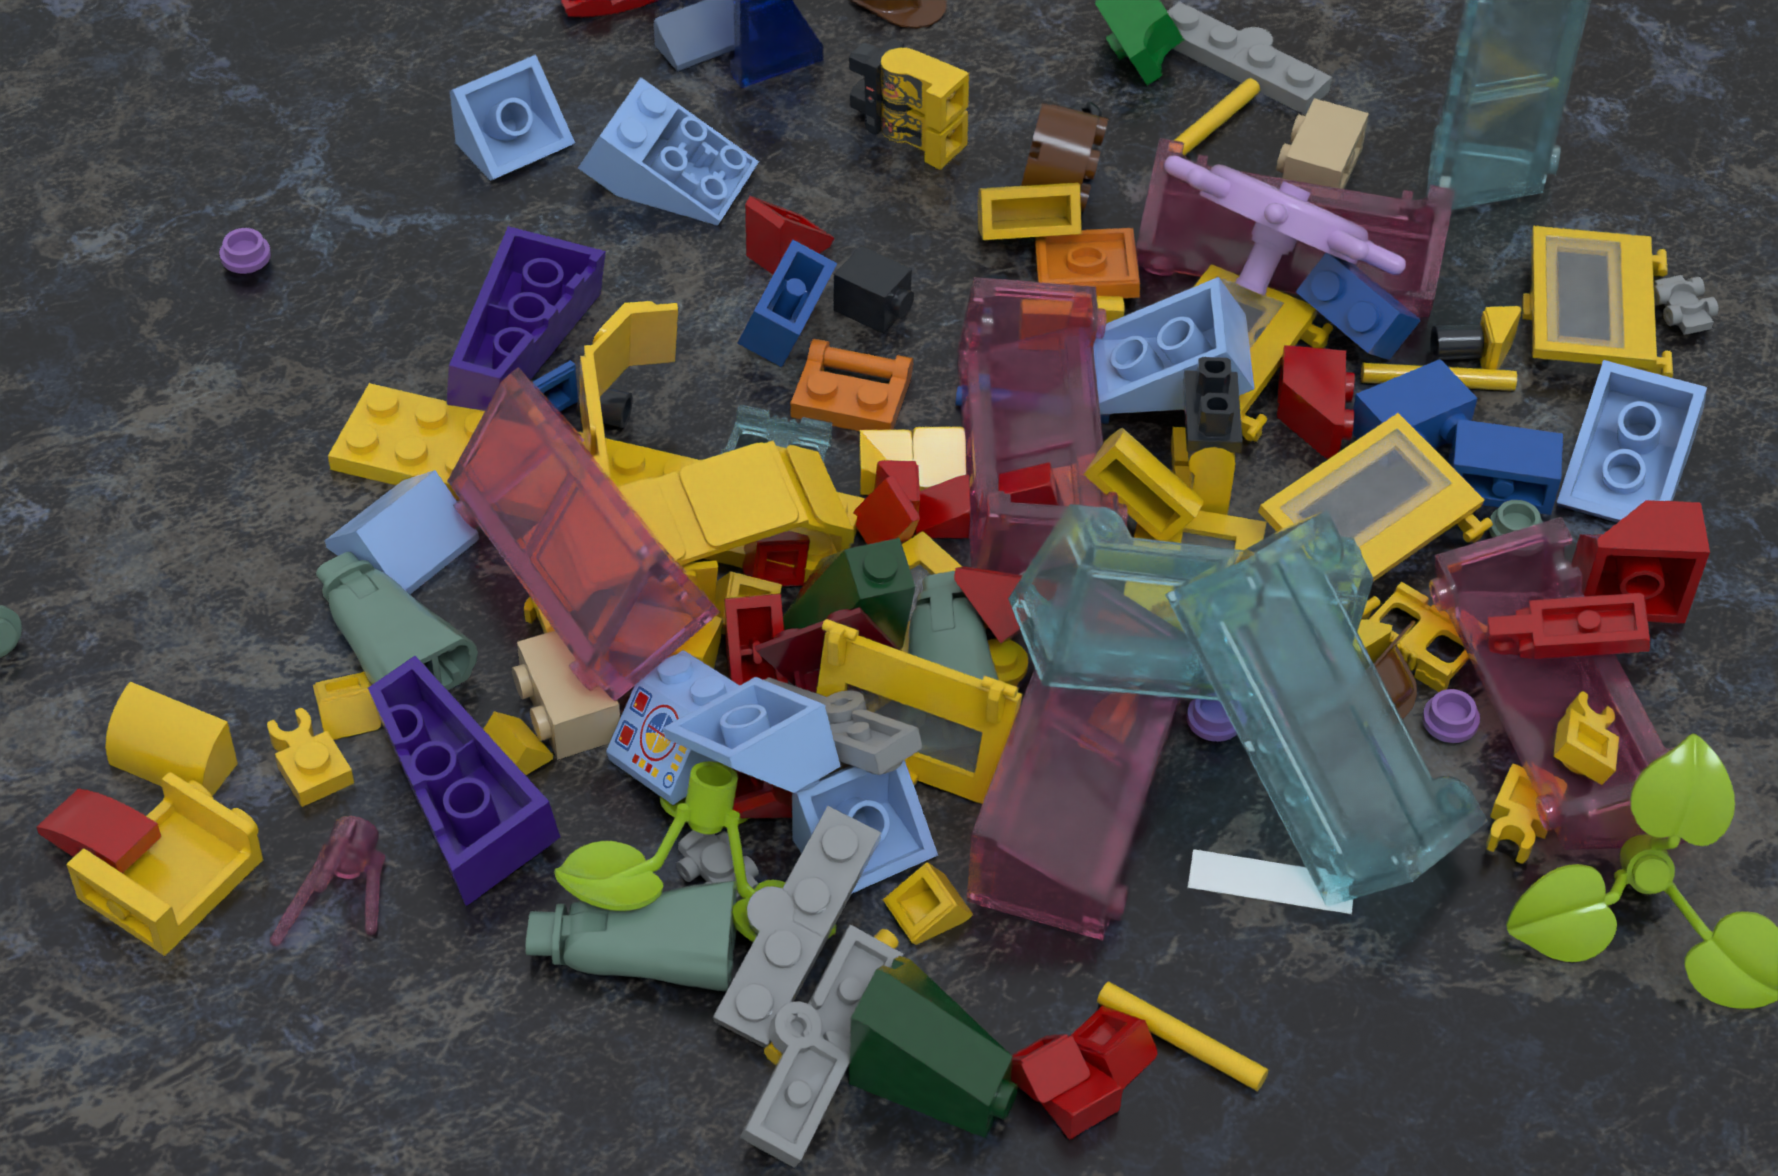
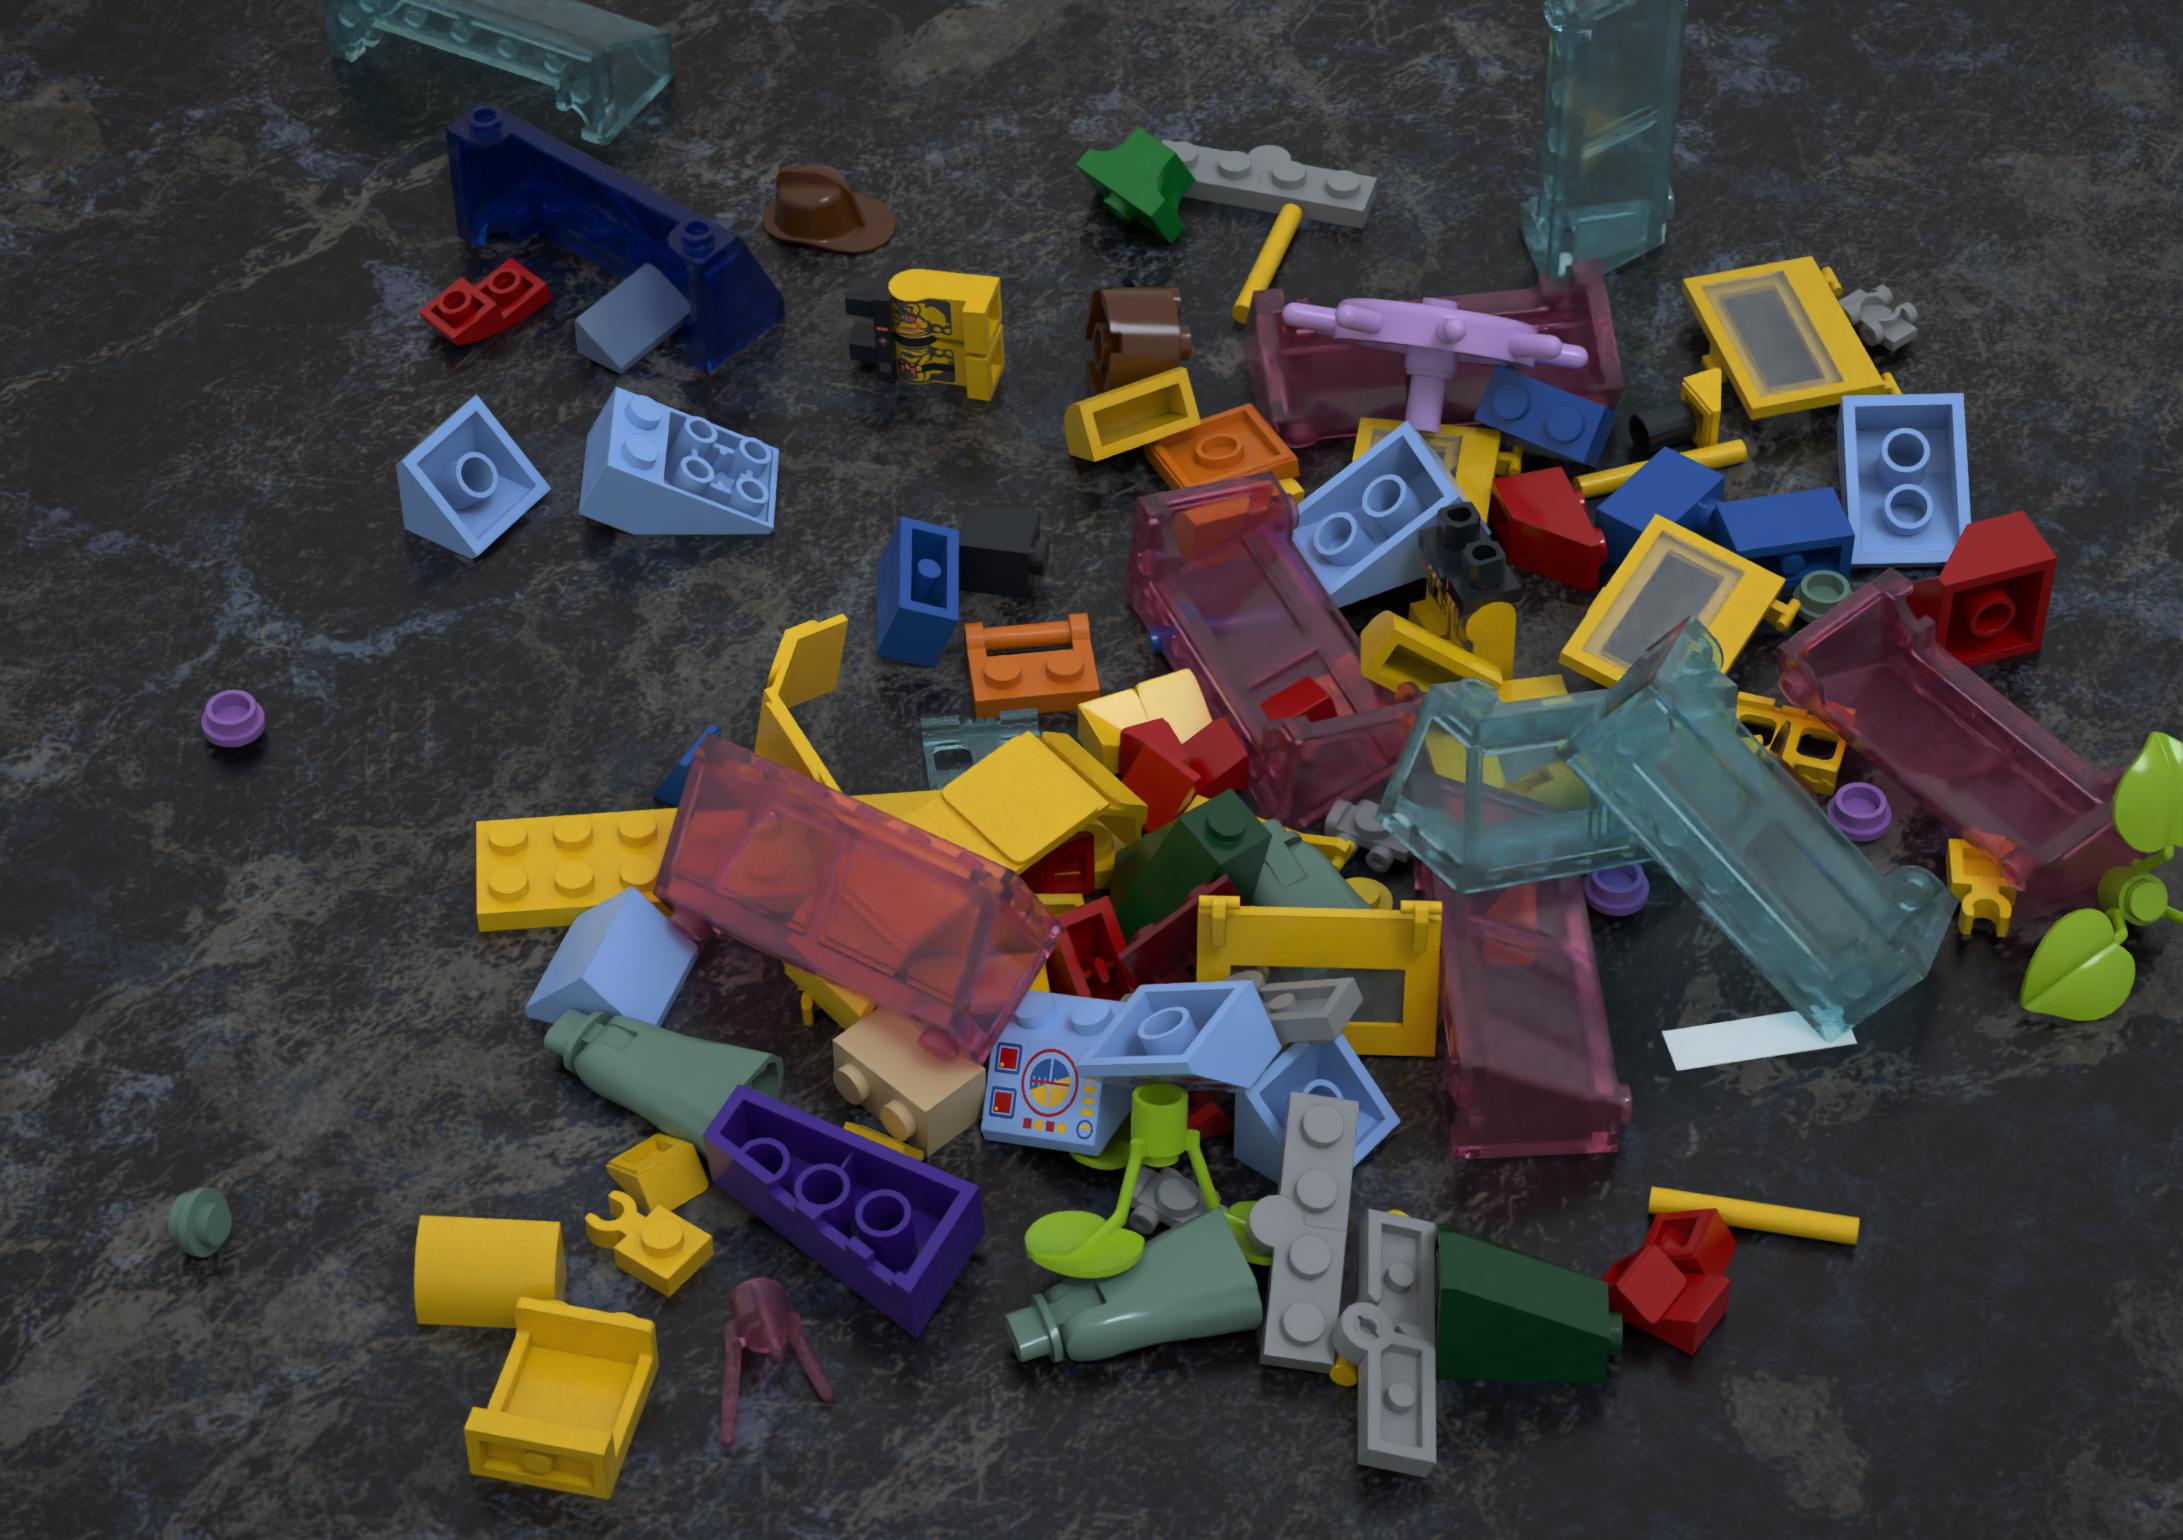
camera: 20 degrees left, 5 degrees down
(101, 827) = (448, 1382): red slope -> none
(522, 312) = (616, 689): dark purple wedge -> none
(772, 230) = (857, 526): red slope -> none
(927, 904) = (1418, 1174): yellow slope -> none
(989, 595) = (1343, 831): red slope -> none
(1324, 145) = (1411, 253): tan brick -> none
(1573, 627) = (1950, 679): red hinge -> none
(1585, 742) = (2015, 793): yellow plate -> none

